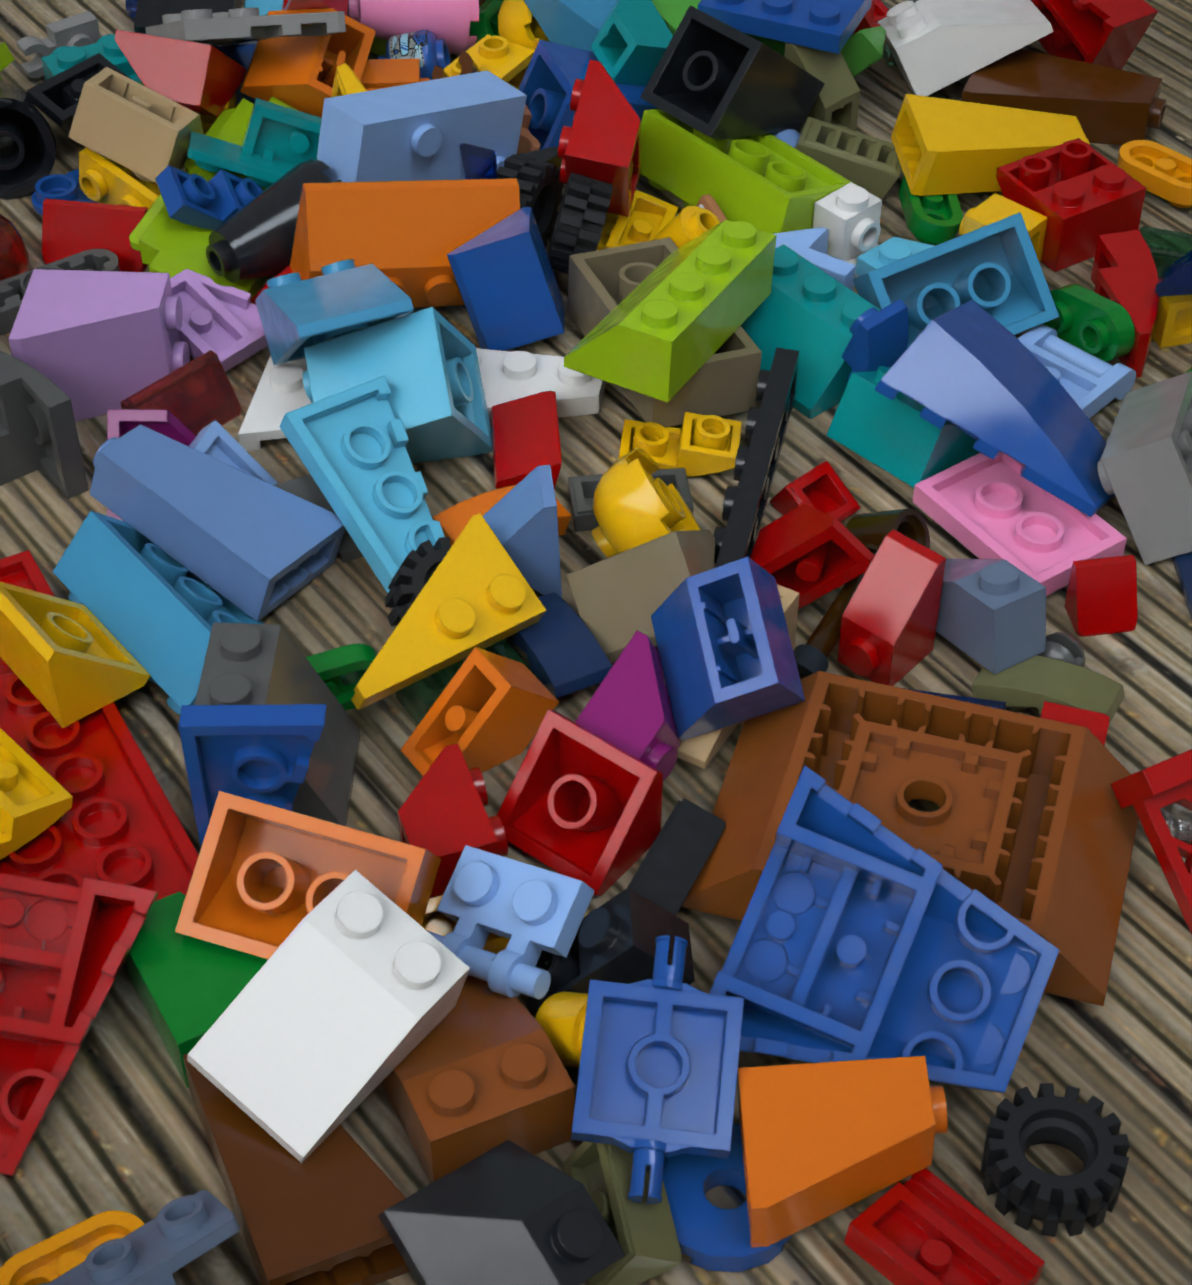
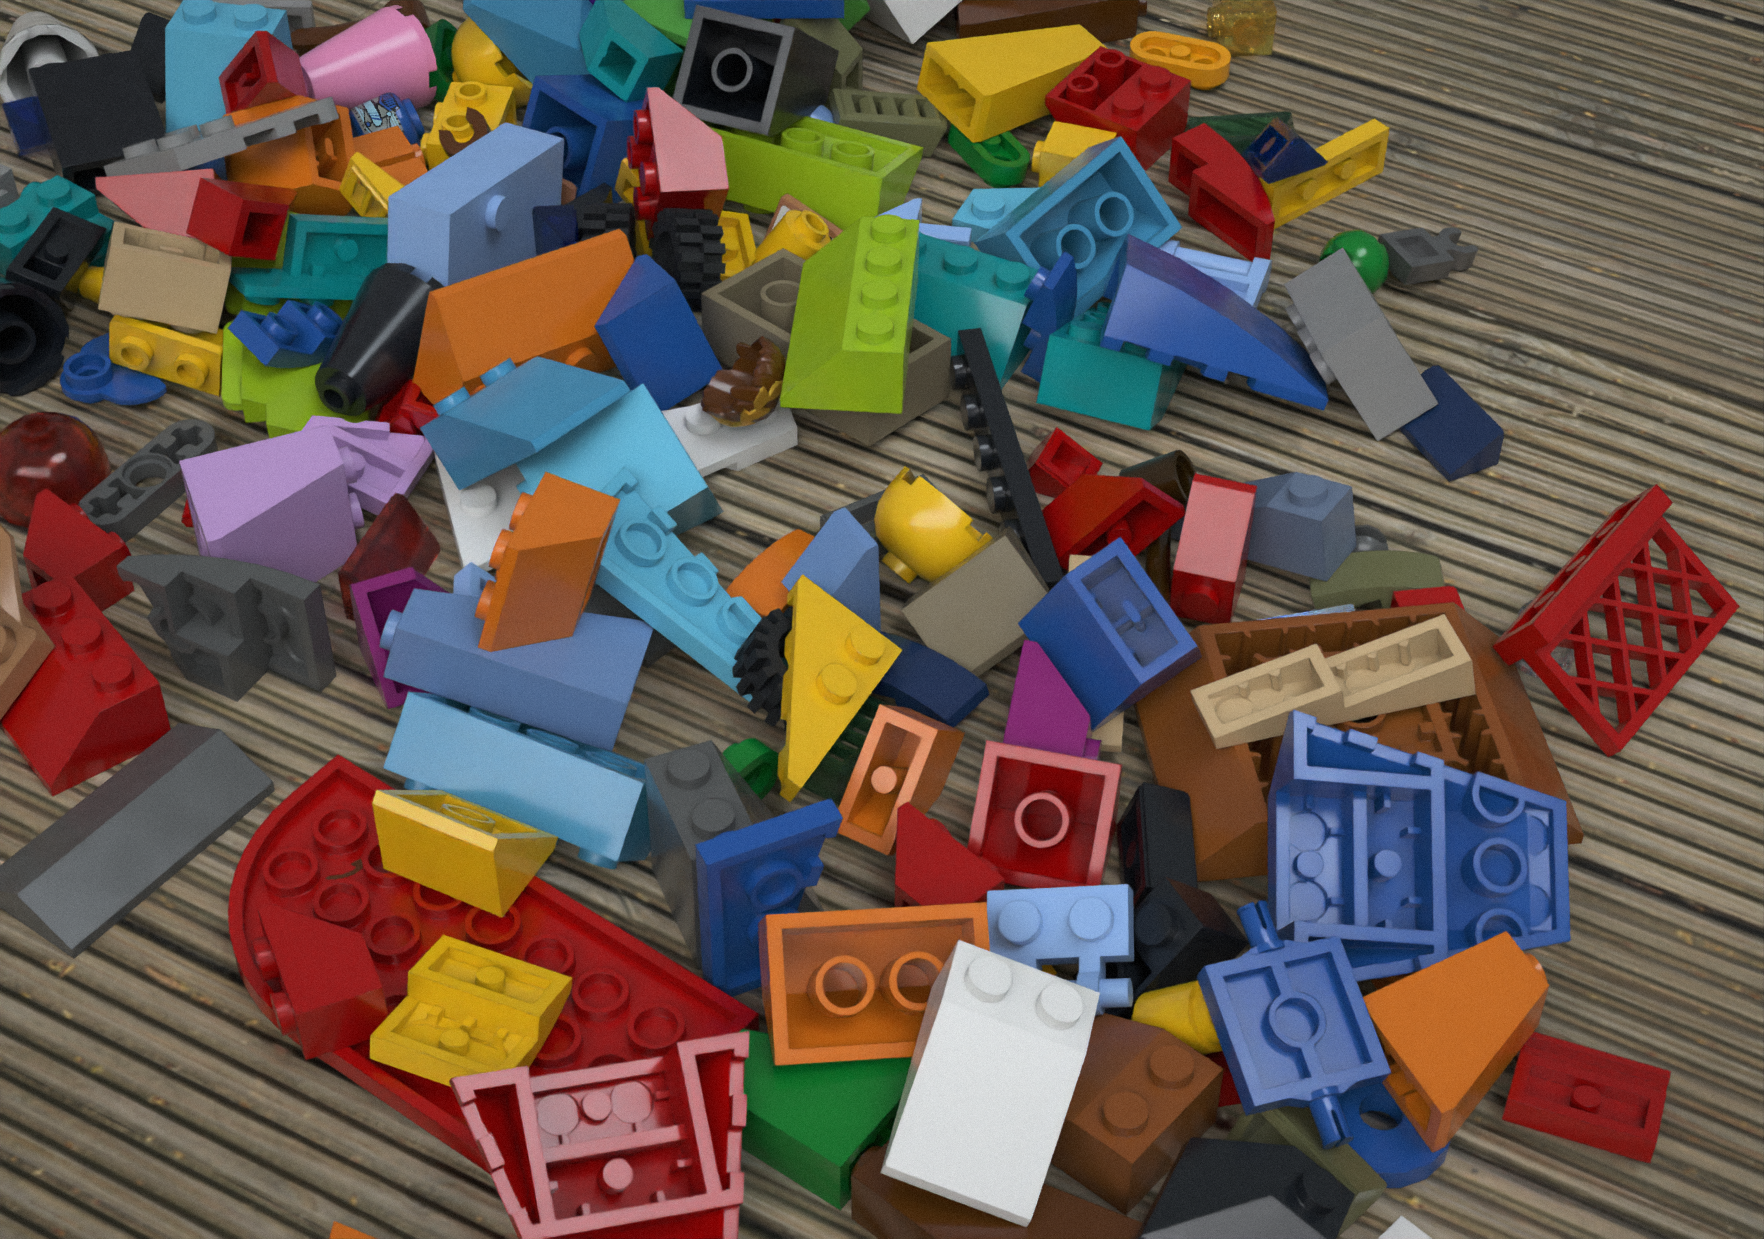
camera: 25 degrees left, 0 degrees up
(82, 226) = (149, 403): red slope -> none
(217, 91) = (241, 217): none -> red slope
(245, 434) = (545, 564): none -> orange slope
(525, 437) = (760, 492): red slope -> none
(545, 351) = (749, 388): none -> reddish brown hair
(701, 446) = (922, 443): yellow slope -> none
(852, 221) = (935, 179): white brick -> none
(878, 763) = (1373, 679): none -> tan slope
(1012, 519) = (1250, 431): bright pink plate -> none
(1042, 1194) = (1621, 1015): black tyre -> none
(1092, 322) = (1206, 217): green plate -> none
(1103, 595) = (1373, 477): red slope -> none

